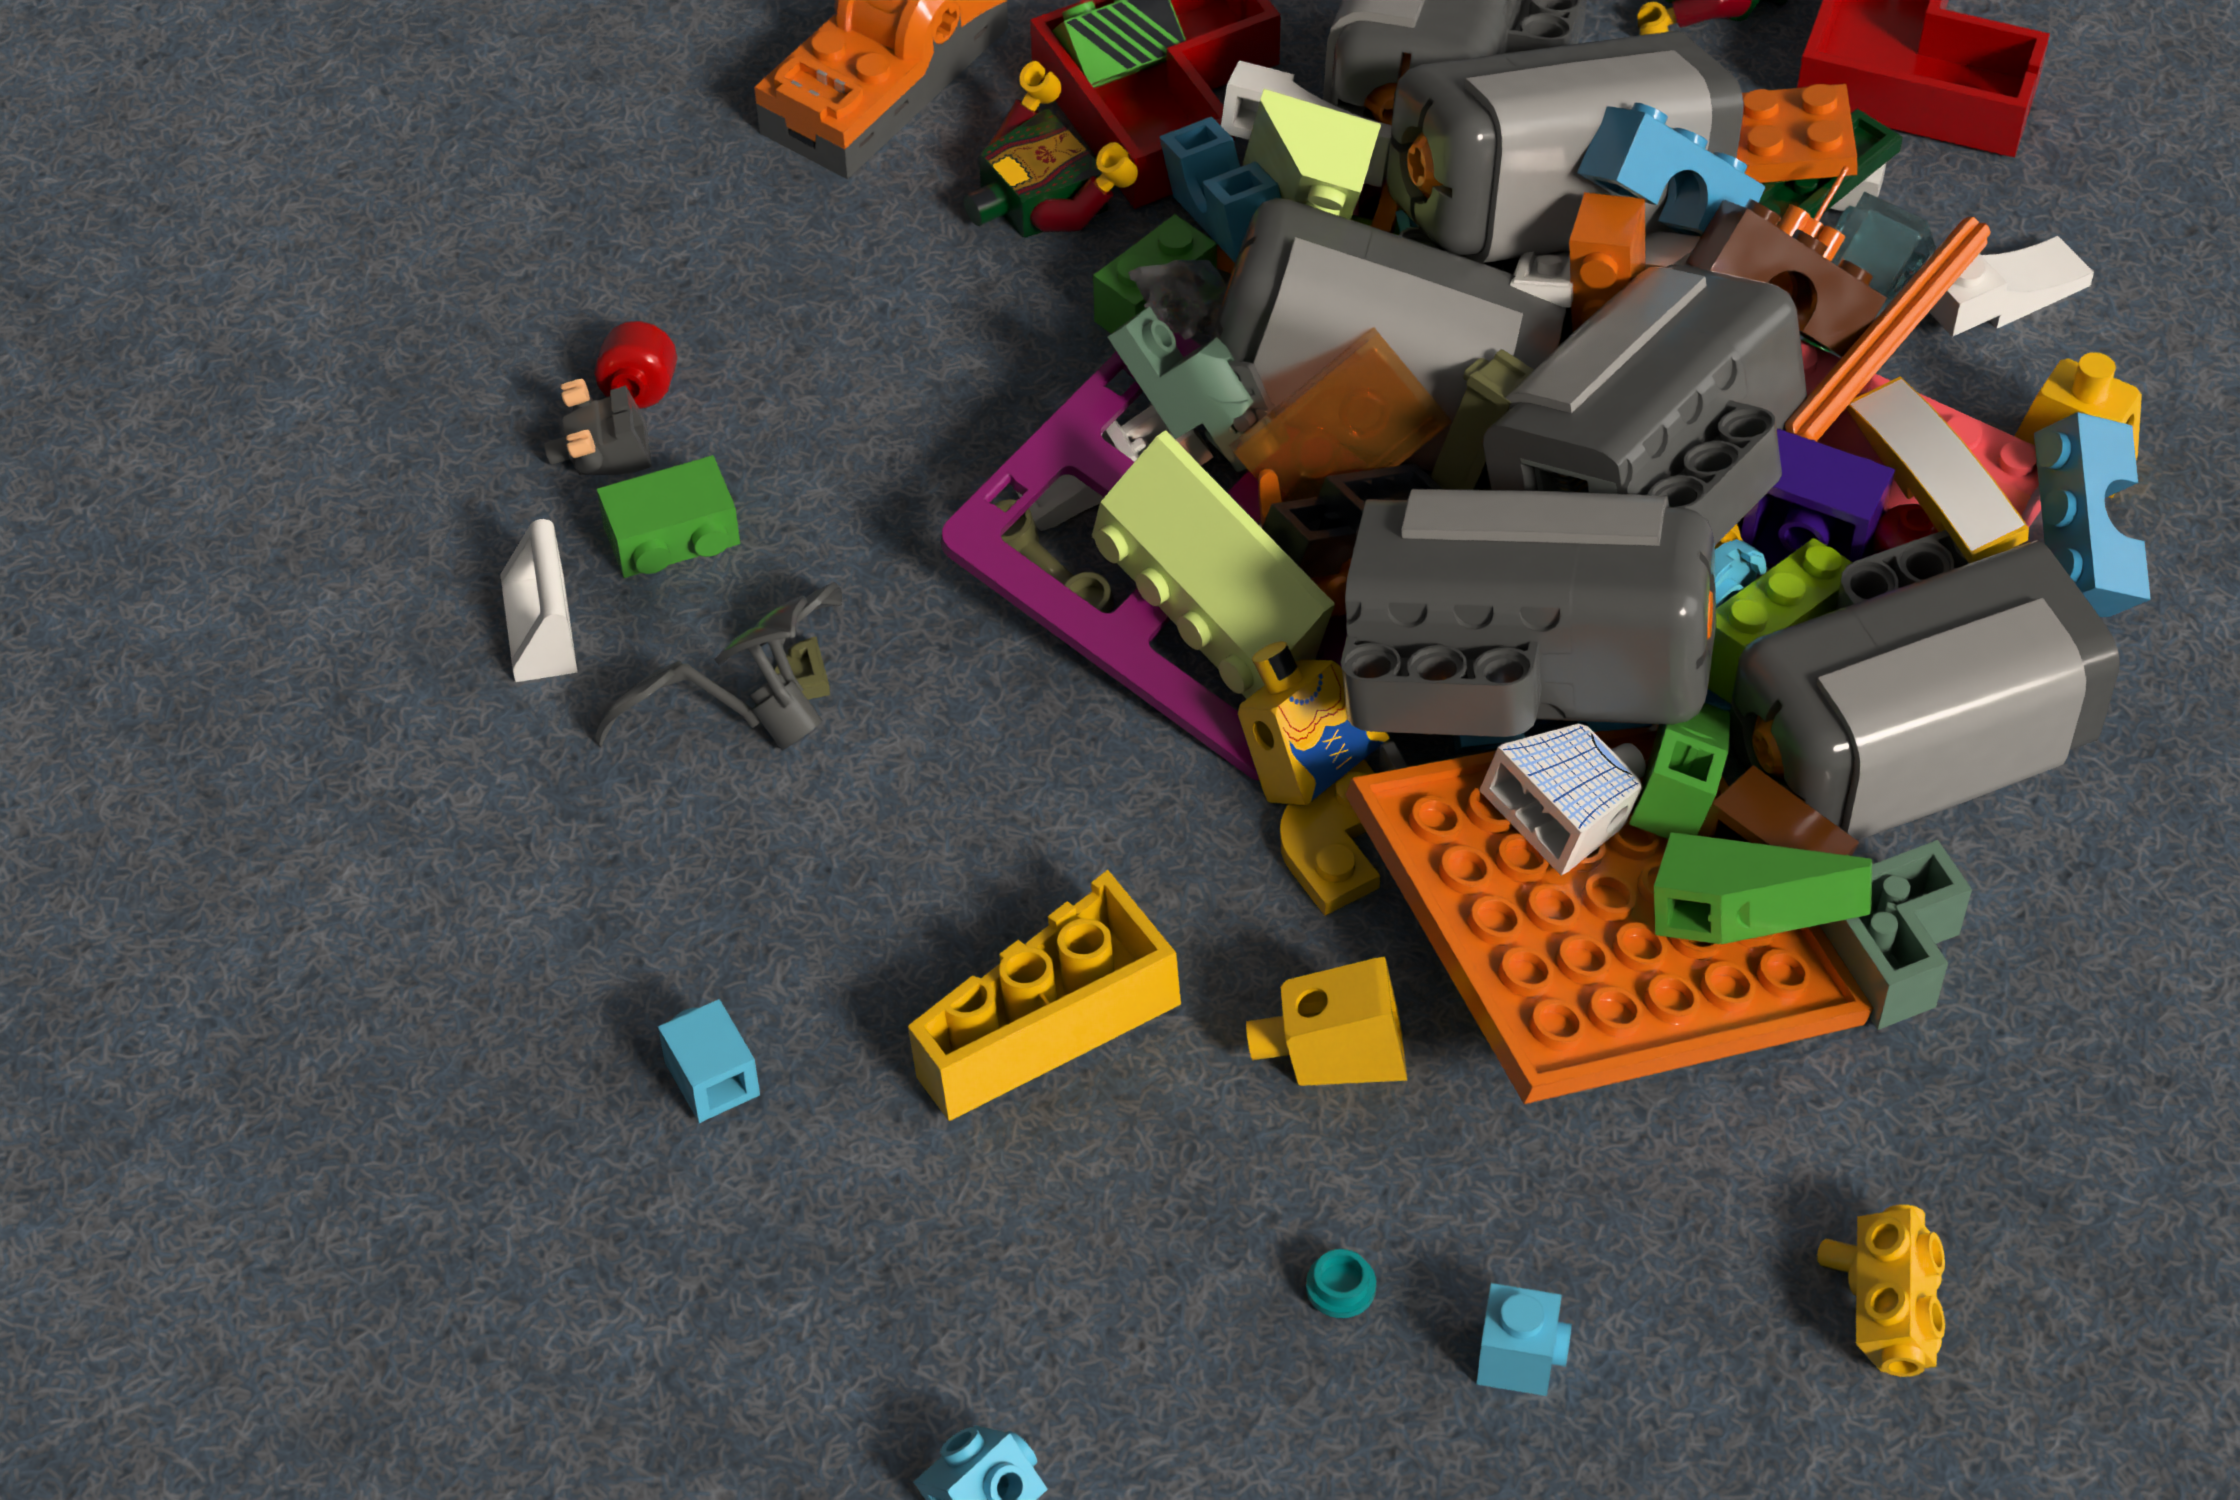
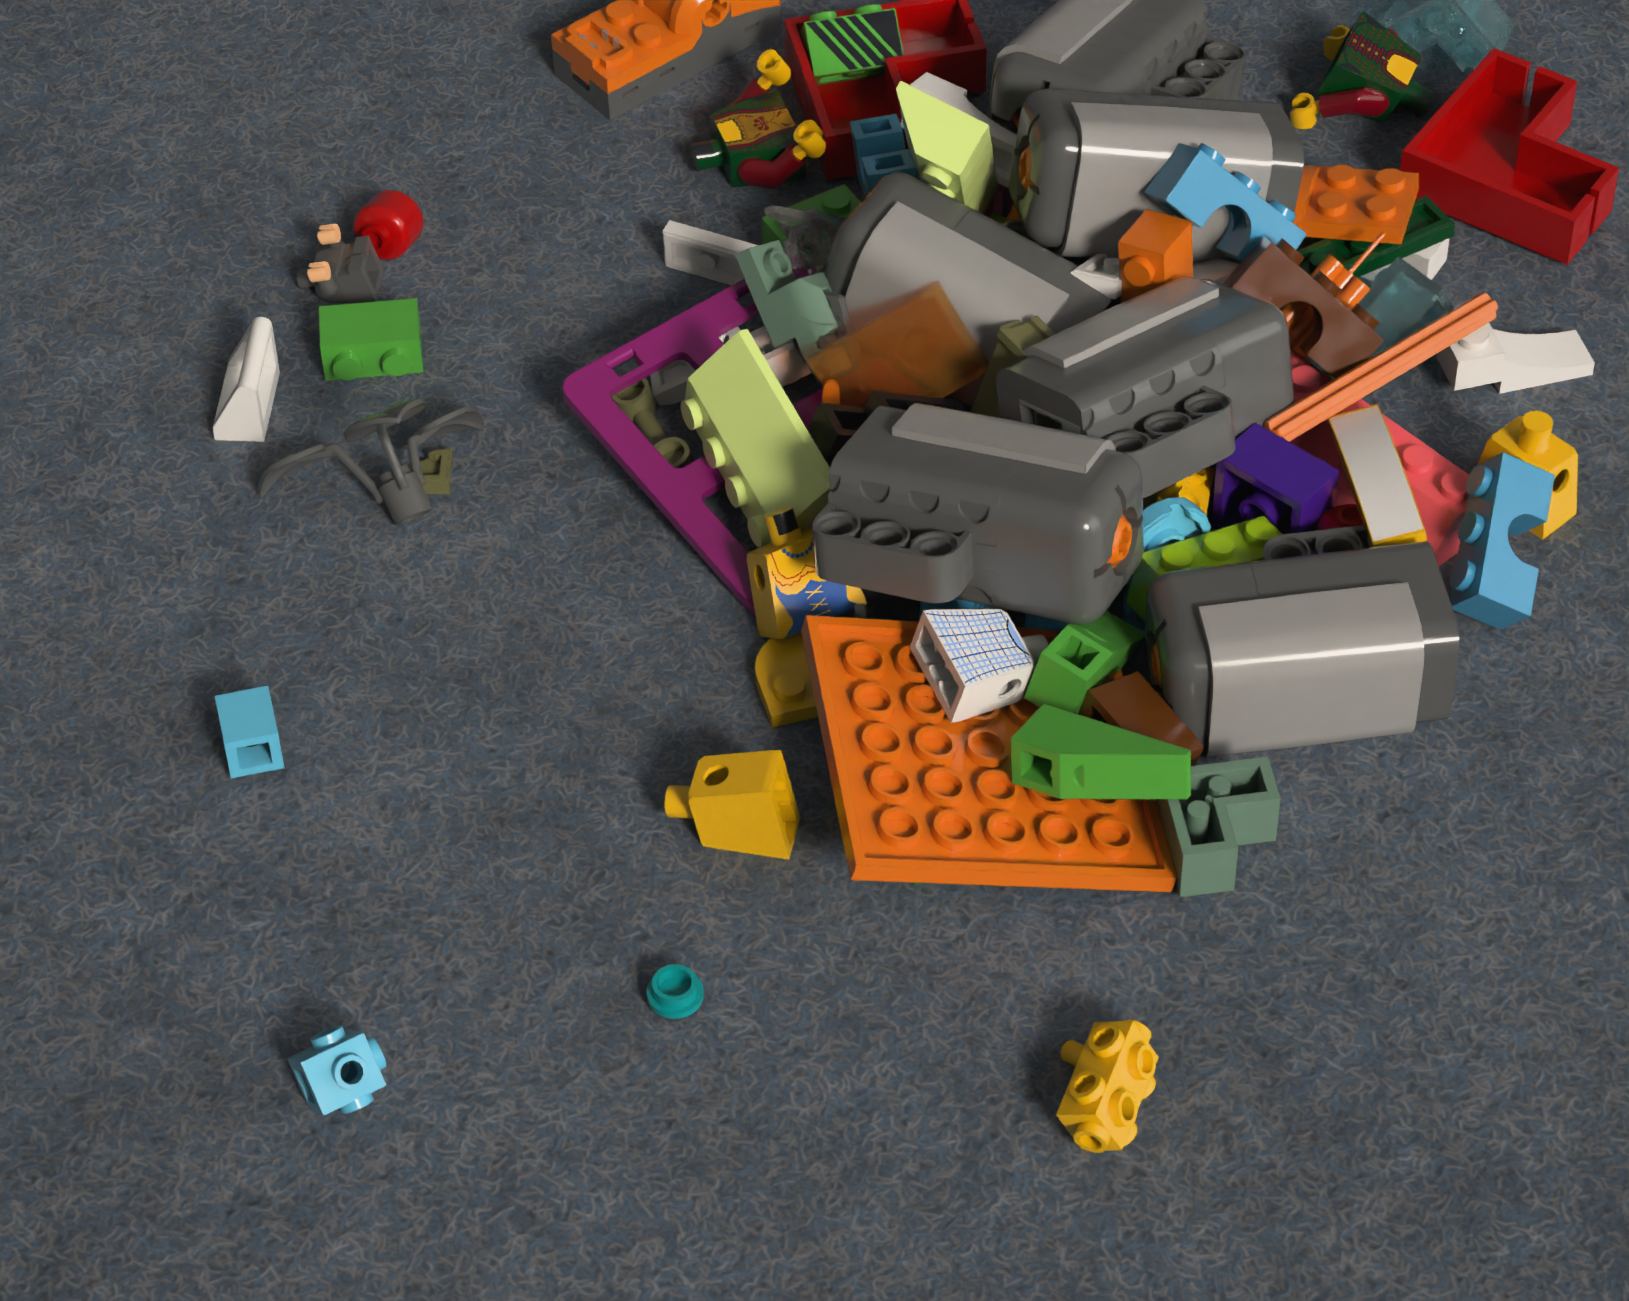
camera: 15 degrees right, 5 degrees down
(1047, 331) = (703, 252): none -> white tile
(1047, 1001) = (519, 741): yellow wedge -> none
(1522, 1339) = (794, 1058): medium azure brick -> none

